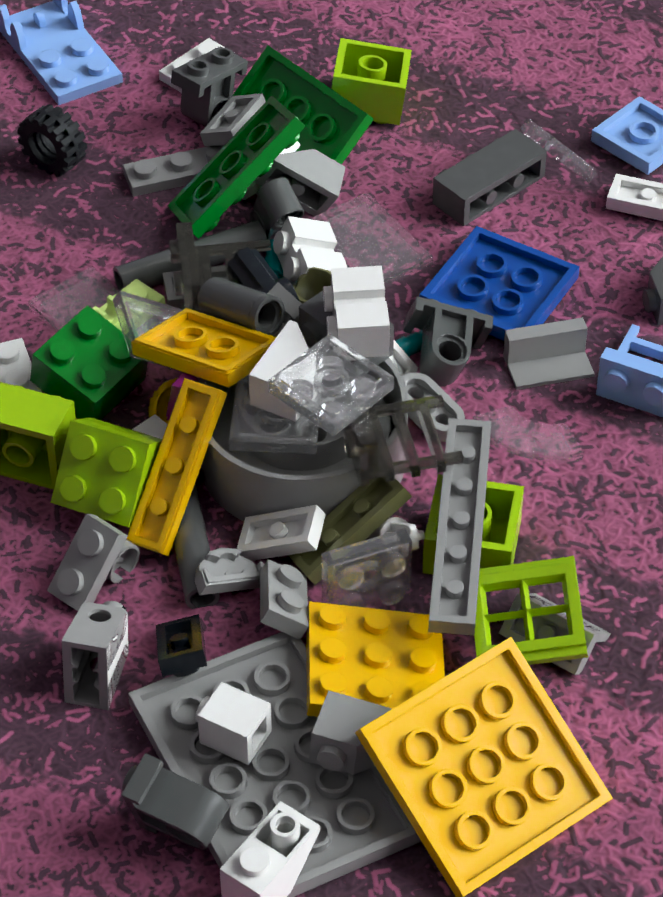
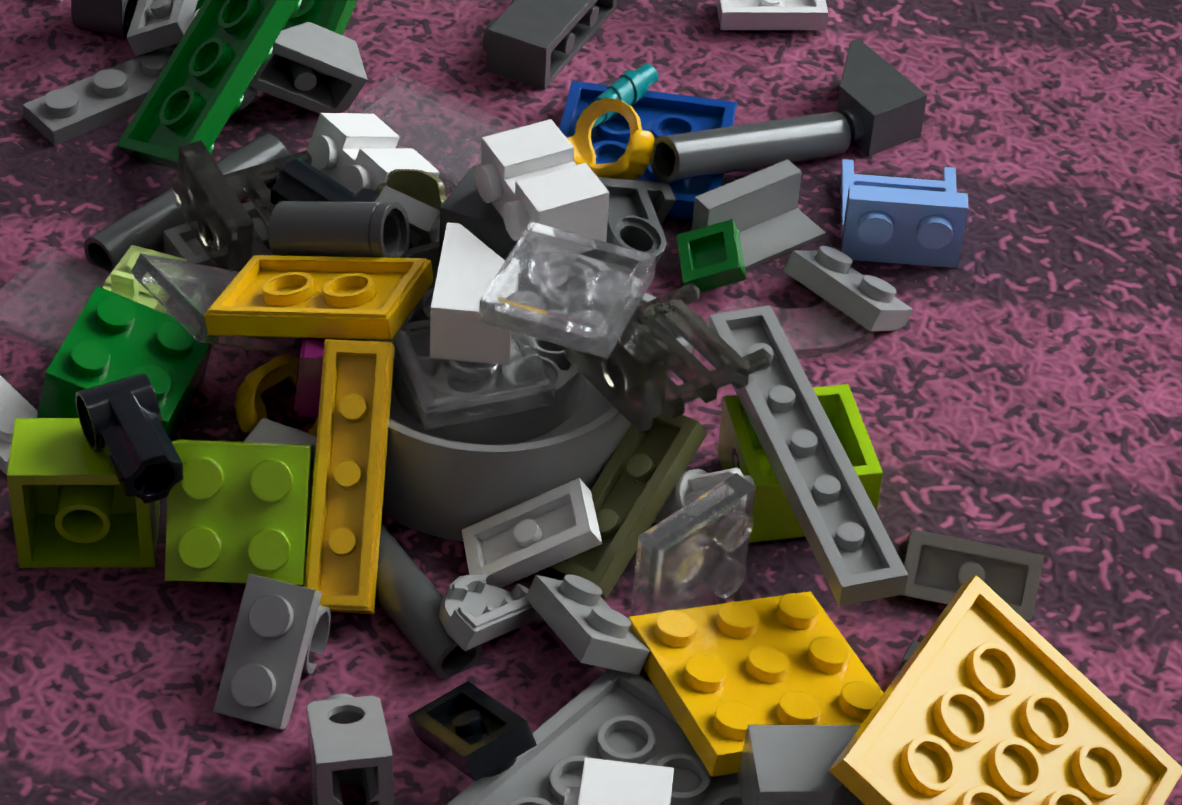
camera: 25 degrees left, 5 degrees down
(48, 408) = (128, 427): none -> black piece
(273, 205) = (291, 107): dark grey piece -> none
(444, 282) = (638, 150): none -> yellow piece
(498, 244) = (629, 88): none -> teal animal
(502, 373) = (711, 256): none -> green plate
(531, 574) = (935, 490): lime piece -> none
(565, 301) = (749, 146): none -> dark grey piece
(582, 418) = (860, 297): none -> light grey plate

